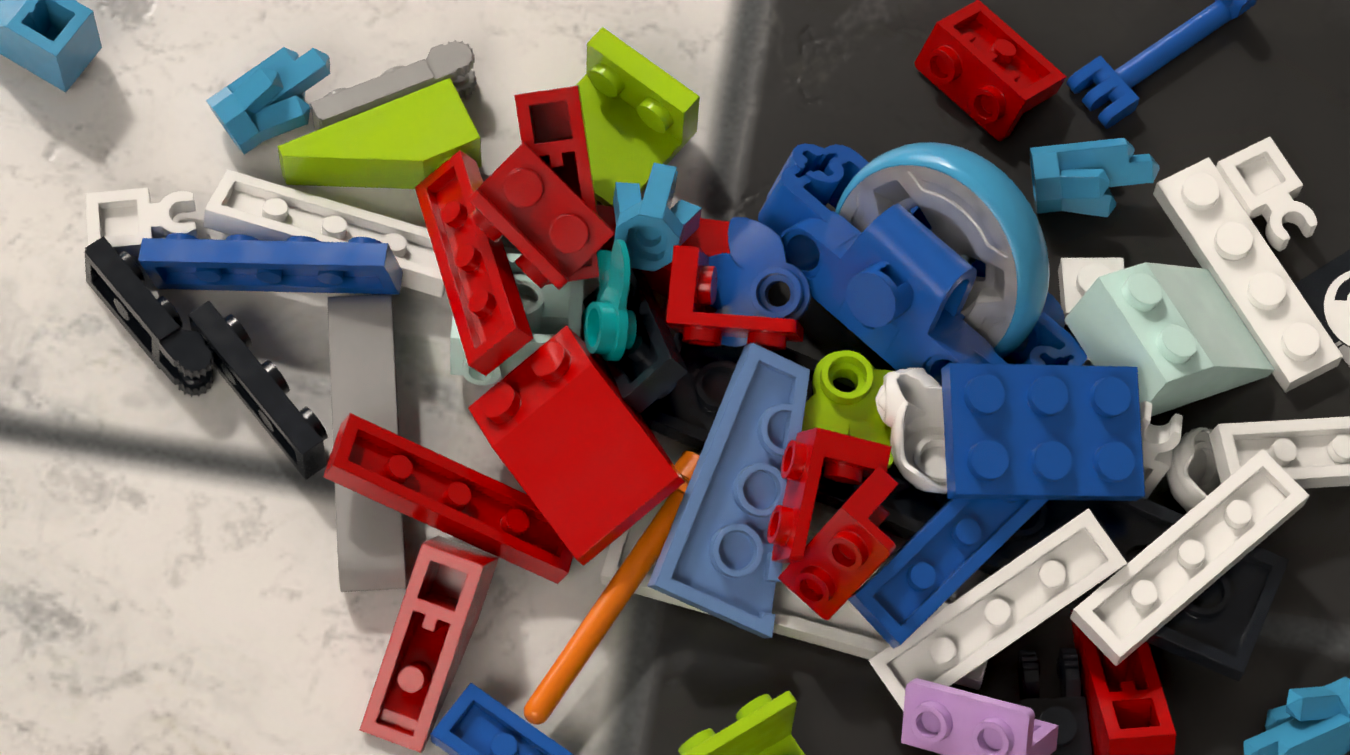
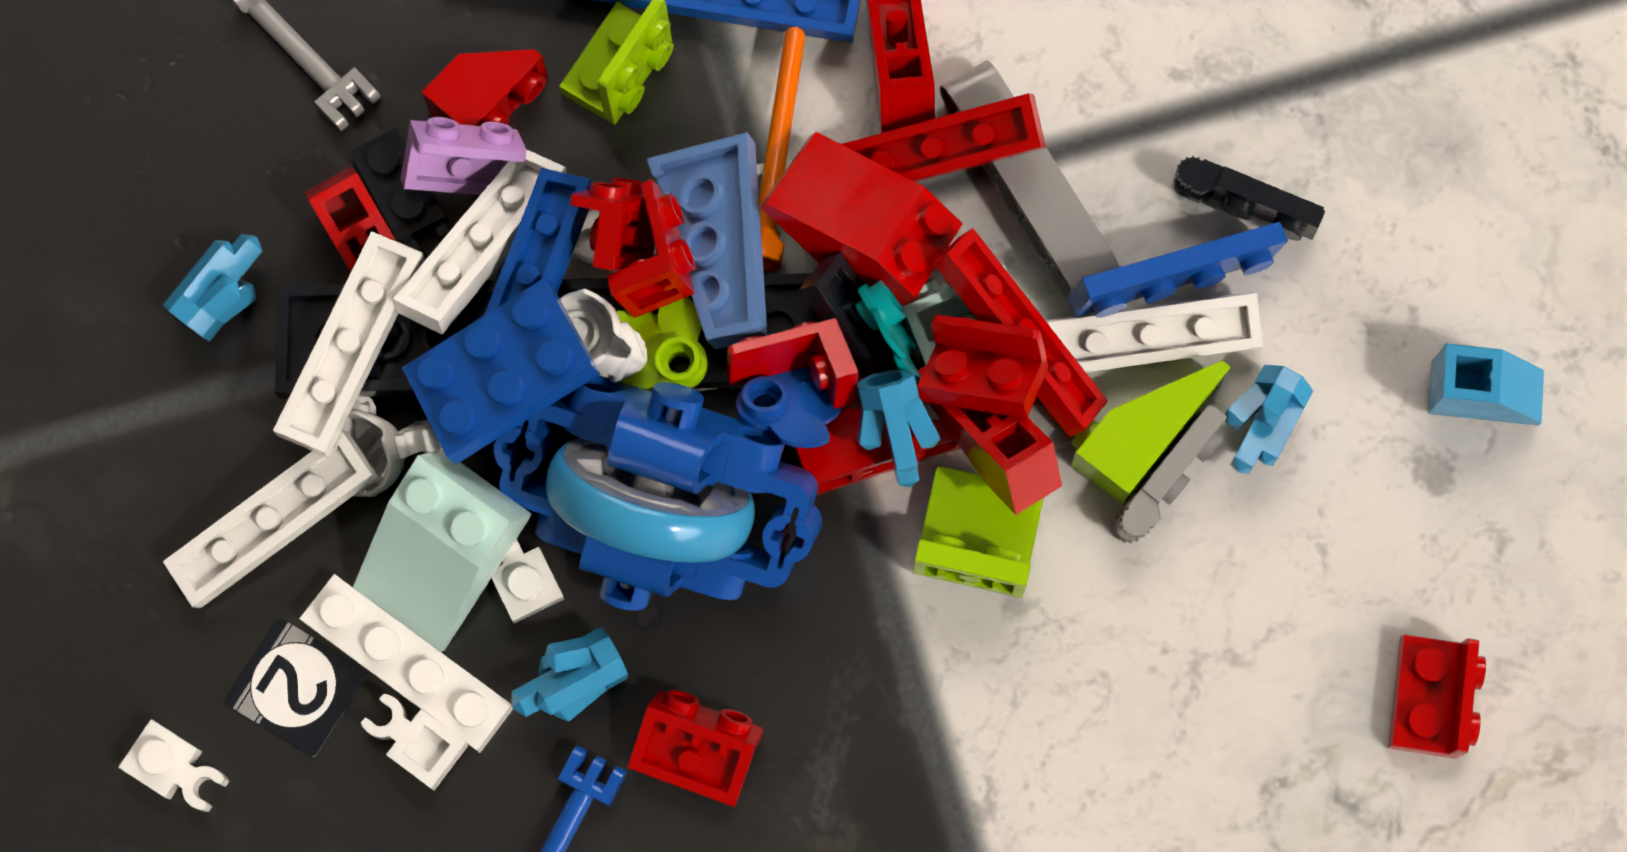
camera: 160 degrees right, 10 degrees up
(129, 216) = (1310, 268): white plate -> none
(262, 390) = (1132, 182): black plate -> none

